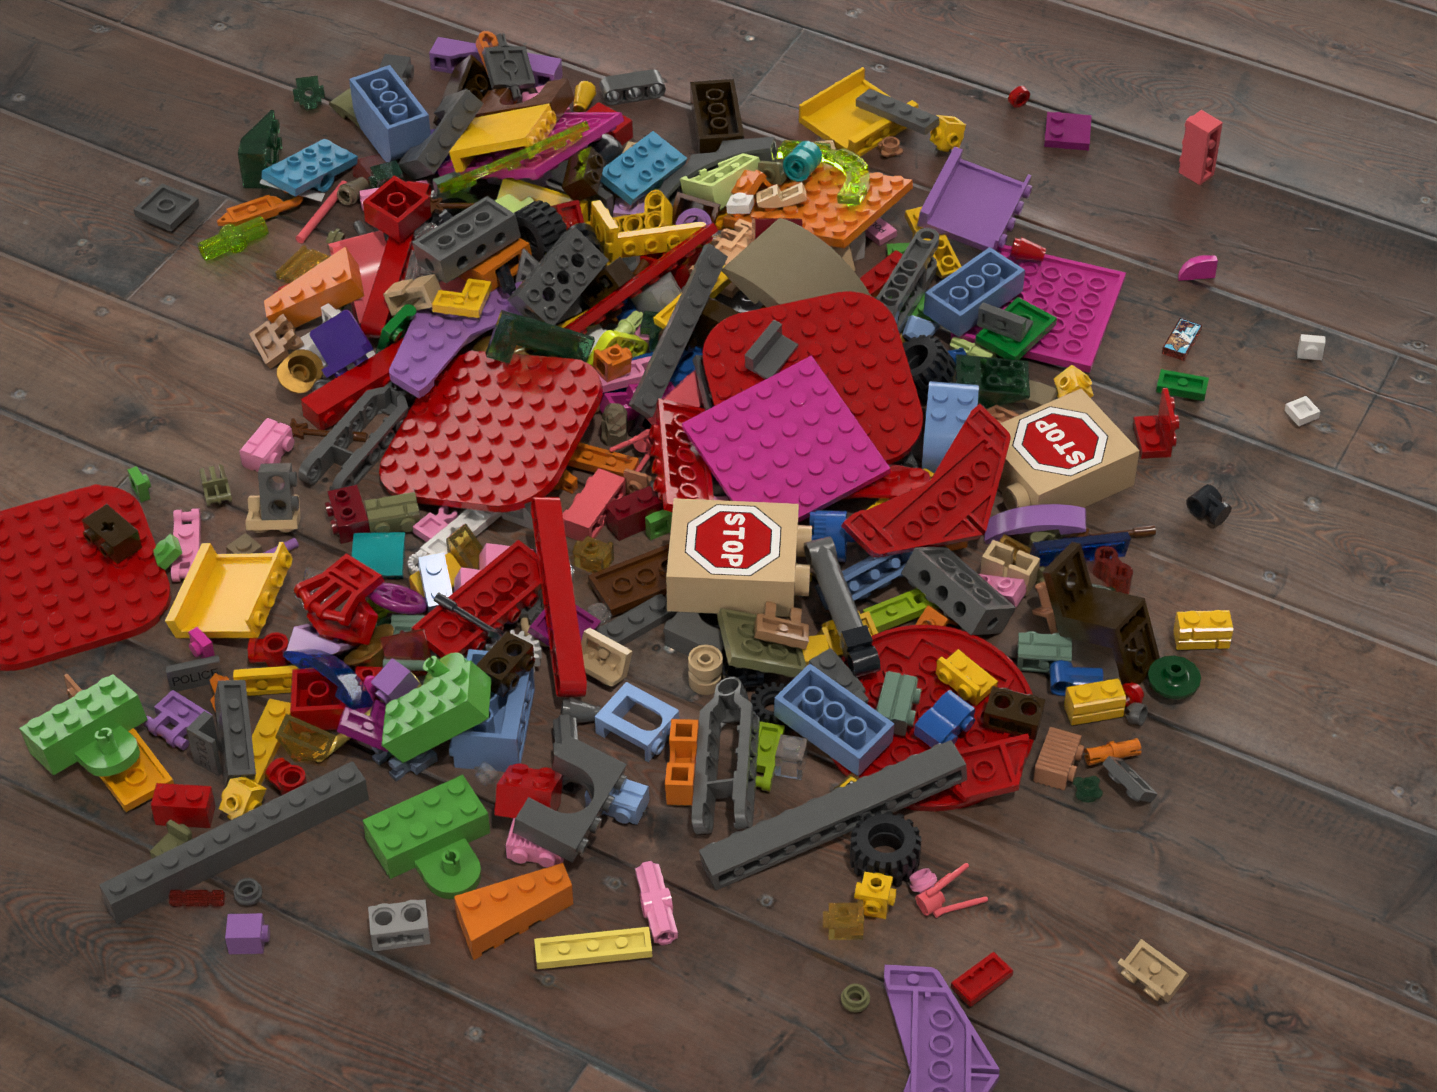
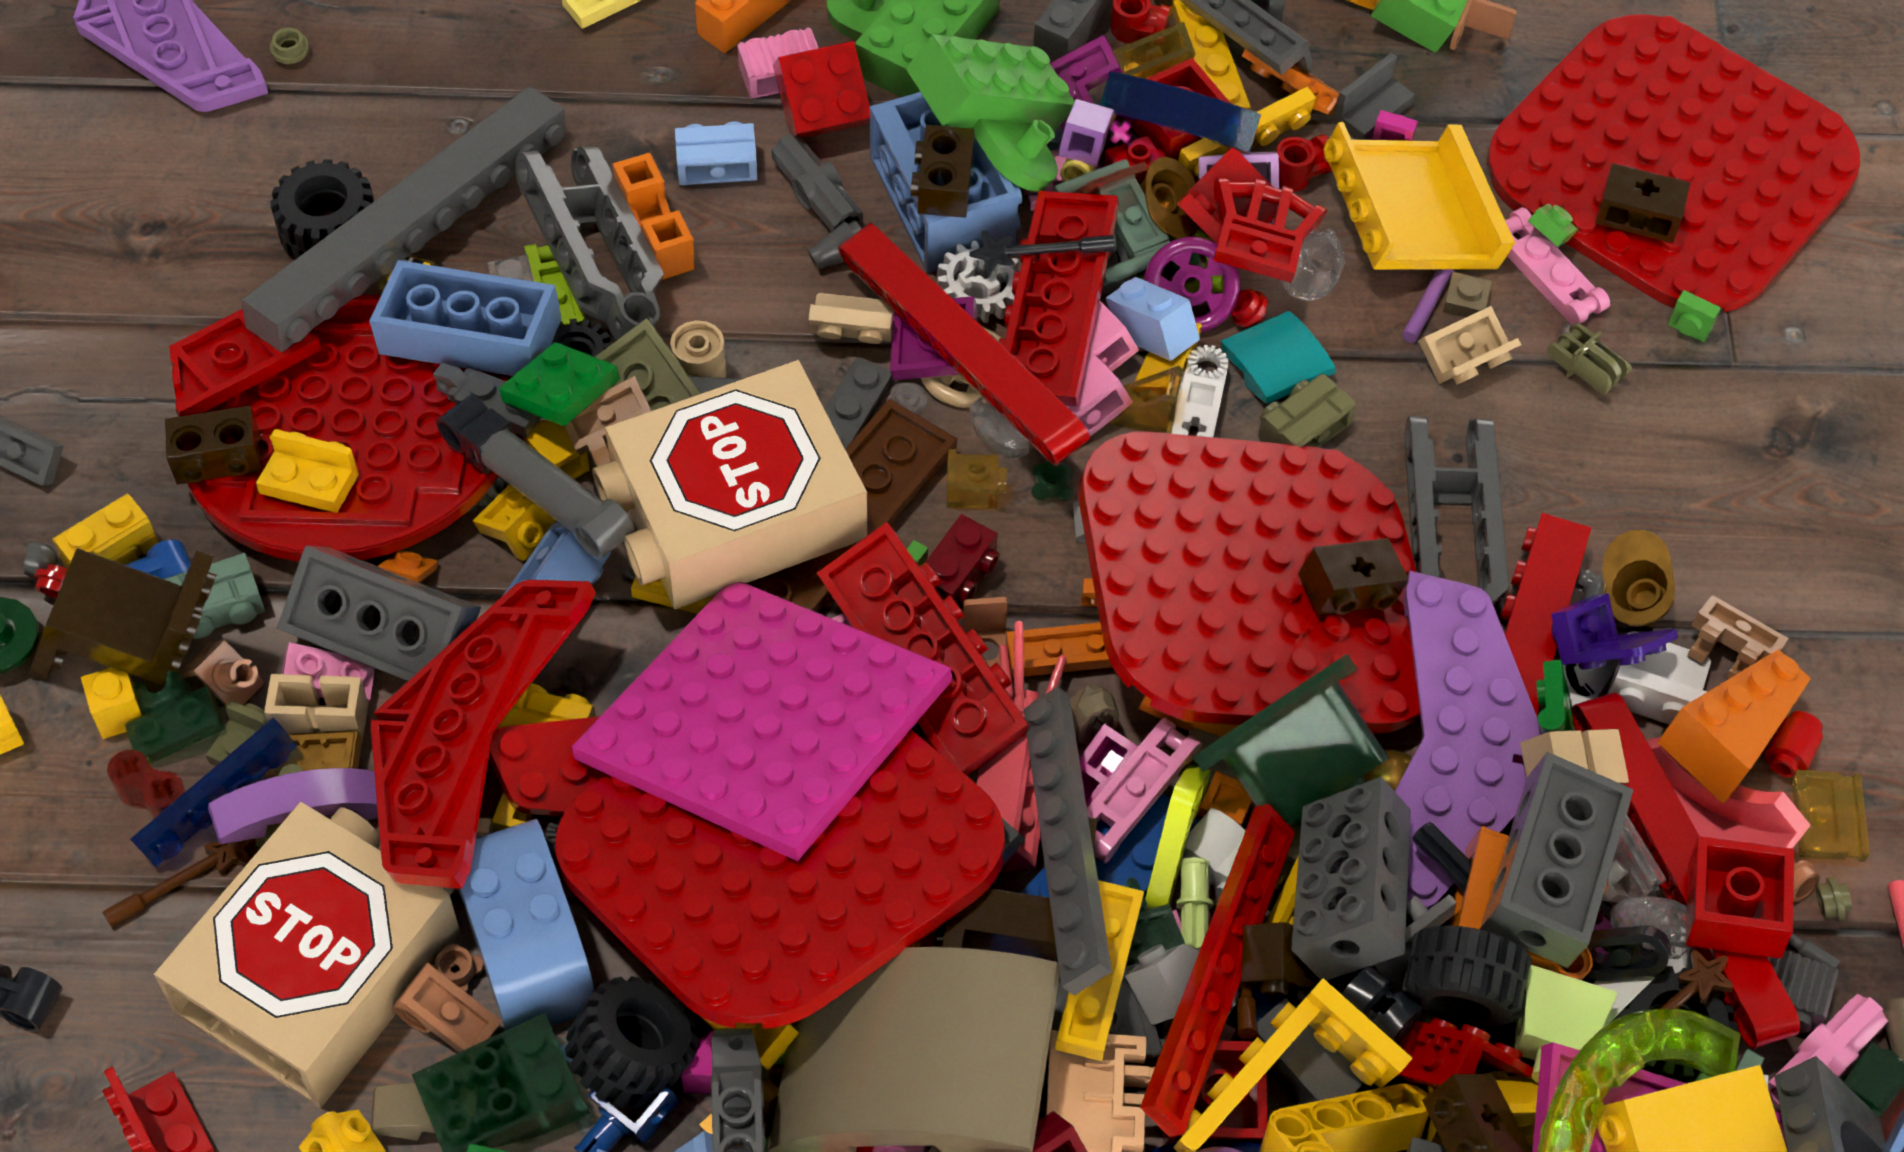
camera: 150 degrees right, 10 degrees up
(179, 712) = (1340, 39): medium lavender plate -> none
(267, 445) = (1577, 451): bright pink brick -> none
(272, 491) = (1475, 334): dark grey brick -> none
(300, 430) = (1570, 512): reddish brown piece -> none
(347, 513) = (1379, 395): dark red brick -> none
(432, 524) = (1237, 421): bright pink plate -> none
(447, 402) = (1353, 577): none -> dark brown brick
(468, 303) = (1468, 774): yellow plate -> none
(568, 832) = (733, 45): dark grey arch -> none
(588, 509) = (1028, 557): coral brick -> none
(611, 716) = (715, 271): light blue panel -> none
(612, 362) = (1160, 757): orange brick -> none
(656, 903) = (590, 54): bright pink piece -> none
(769, 351) = (871, 829): dark grey panel -> none
(800, 645) = (559, 383): none -> green plate
(829, 524) = (625, 634): blue piece -> none
(844, 921) = (341, 121): clear yellow brick -> none
(876, 894) = (311, 144): yellow brick -> none
(897, 700) = (390, 389): sand green brick -> none
(898, 609) = (479, 568): lime plate -> none
(922, 880) = (257, 205): bright pink plate -> none
(932, 899) = (237, 188): coral plant -> none
(945, 720) = (310, 393): blue brick -> none
(981, 979) = (137, 121): red plate -> none
(1058, 758) = (133, 439): nougat brick -> none
(1087, 794) = (82, 429): clear green plate -> none
(1119, 750) = (58, 486): orange pin -> none

